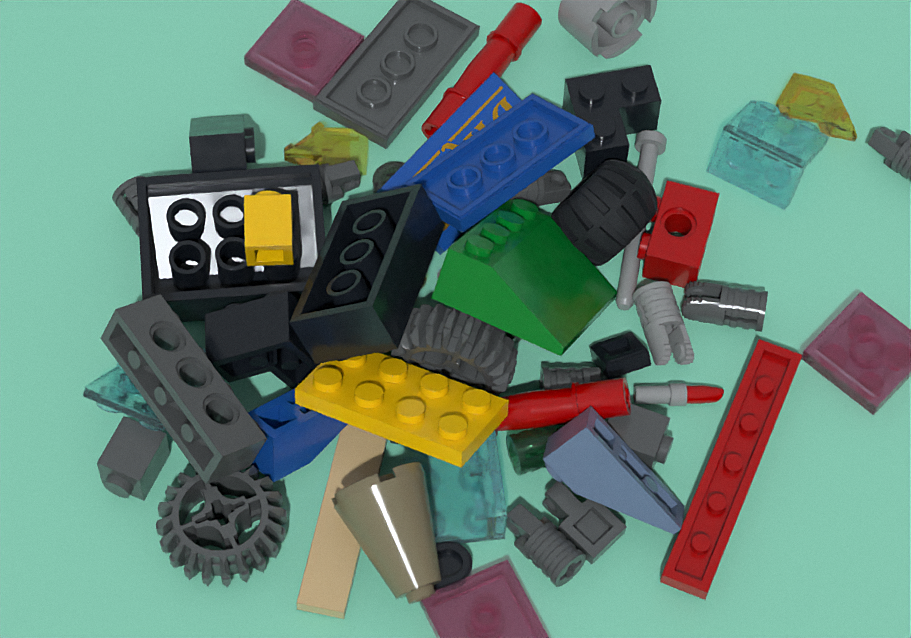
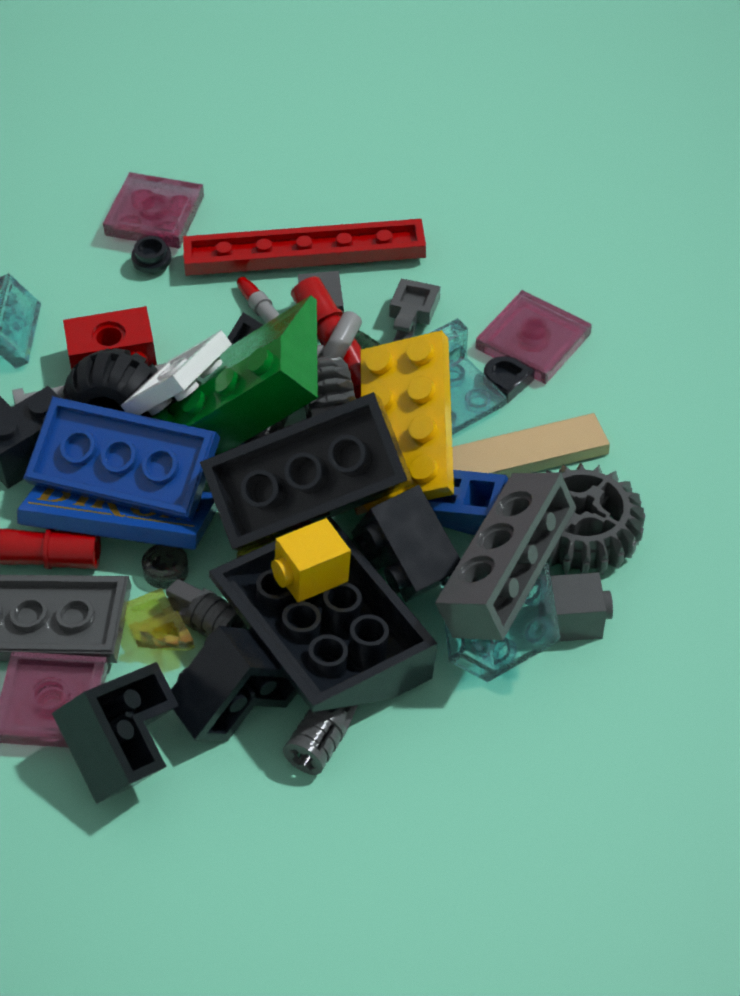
camera: 115 degrees left, 10 degrees down
(233, 56) = (110, 732): none -> black brick
(394, 529) = (506, 392): dark tan cone -> none
(527, 382) = (341, 336): none -> light grey arm
(545, 545) = (452, 304): dark grey hinge -> none
(553, 223) = (178, 376): none -> white plate
(607, 471) = (371, 293): sand blue slope -> none
(662, 323) = (202, 325): light grey hinge -> none
(725, 305) = (160, 294): dark grey hinge -> none
(799, 325) = (151, 254): none -> black plate

